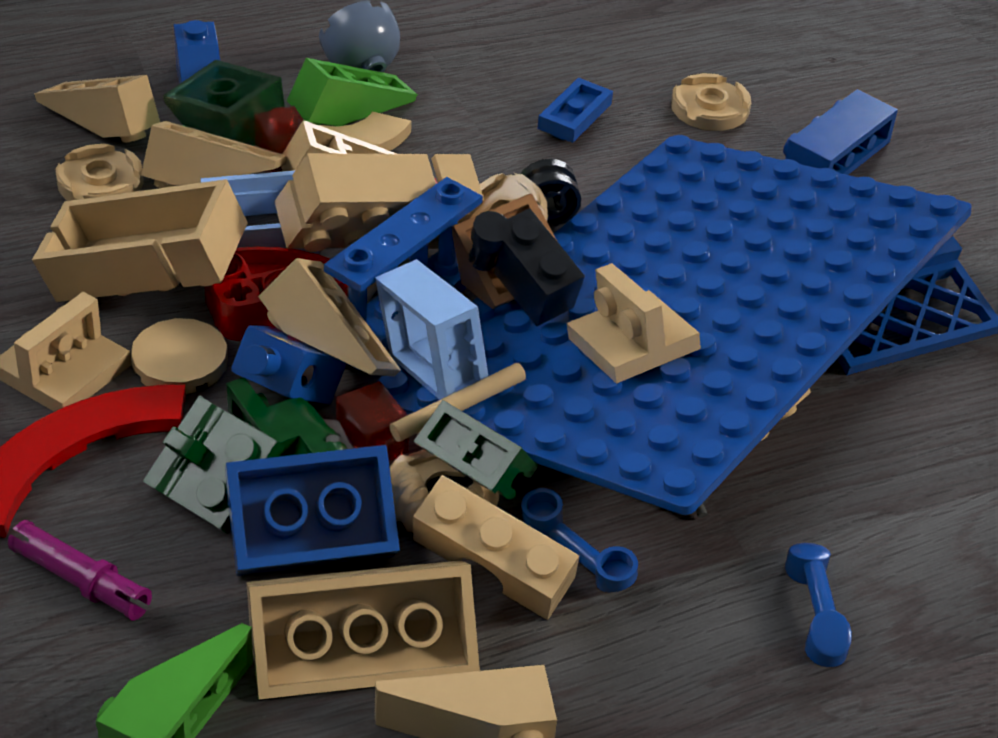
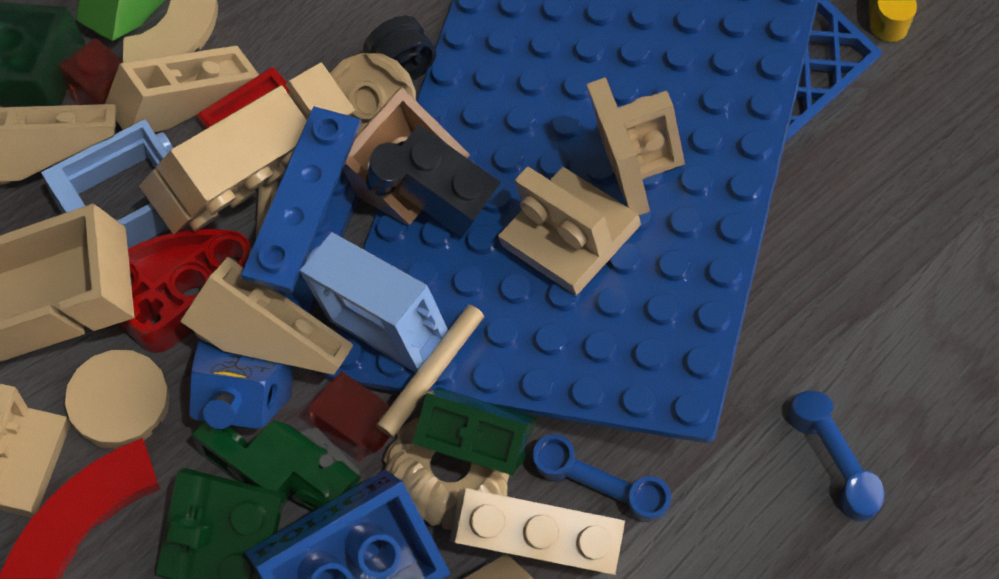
camera: 20 degrees left, 20 degrees up
(722, 273) = (637, 139): none -> tan bracket

